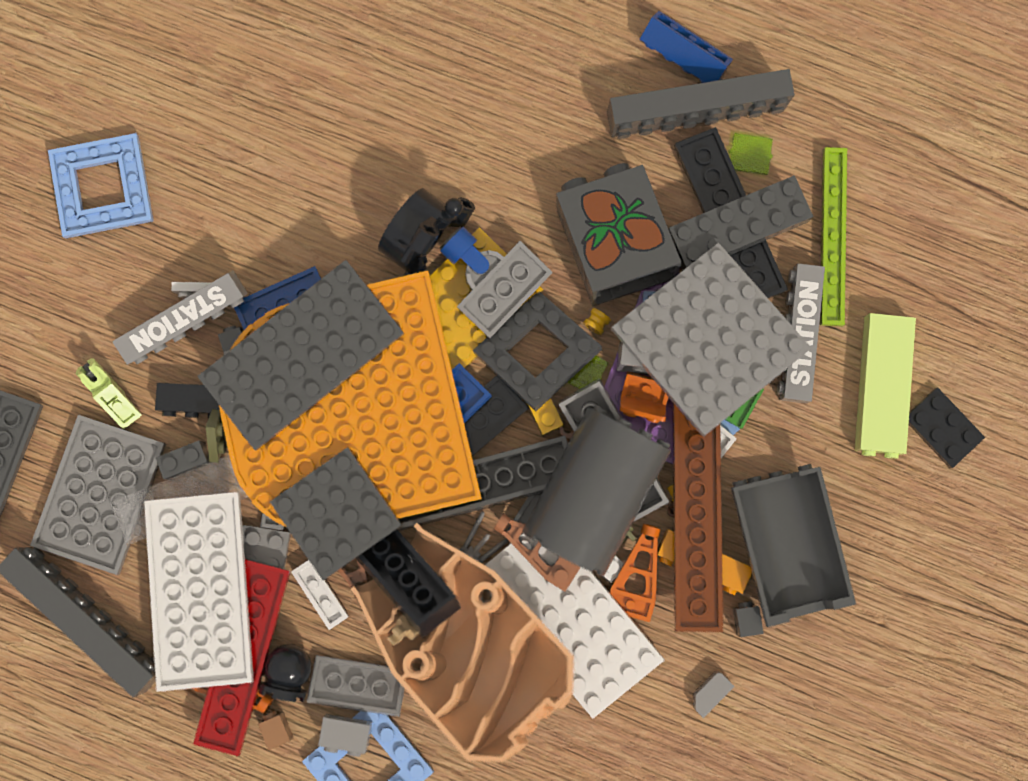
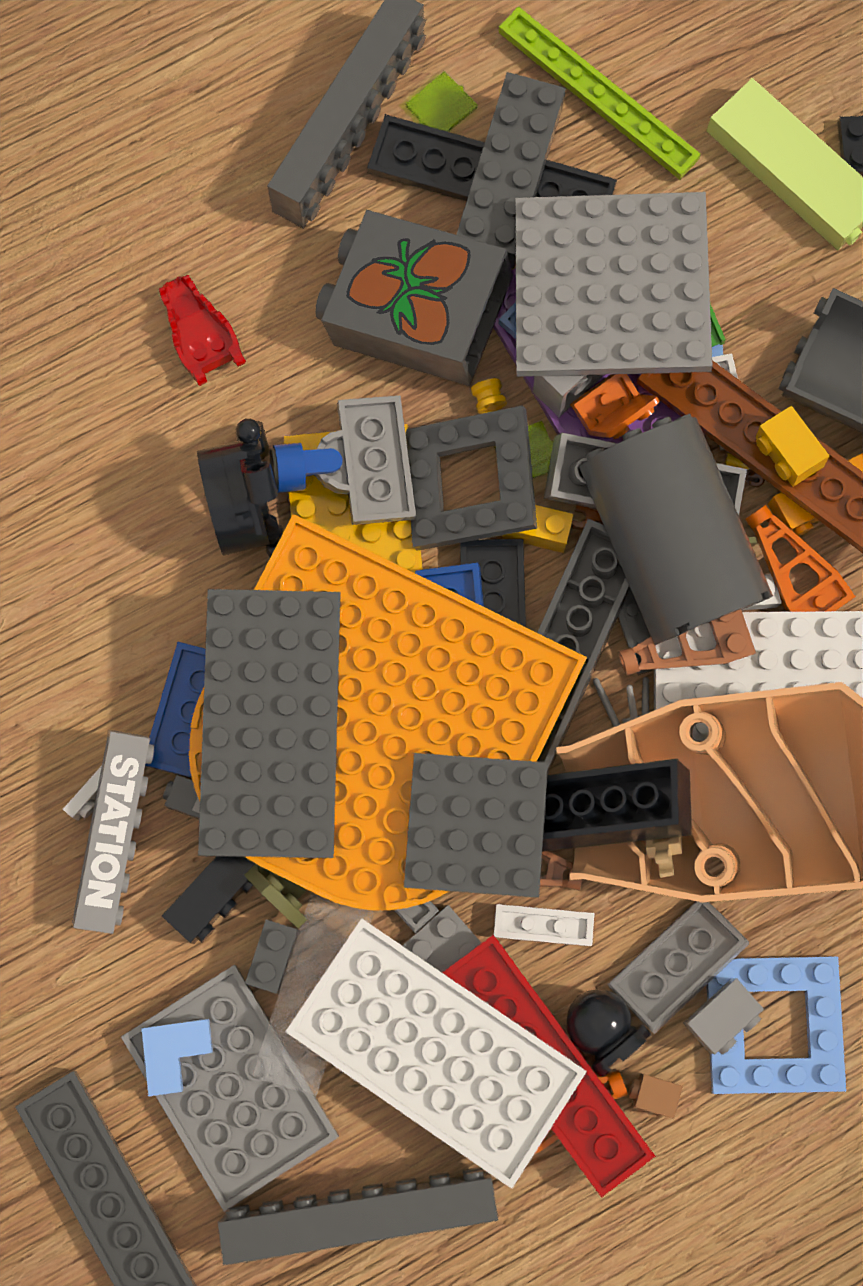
camera: 50 degrees left, 5 degrees down
(88, 443) = (163, 1050): none -> light blue tile
(108, 393) = (125, 981): yellowish green plate -> none
(500, 130) = (198, 330): none -> red animal
(685, 48) = (277, 78): blue brick -> none
(701, 517) = (791, 446): none -> yellow brick
(804, 316) = (645, 172): light grey brick -> none

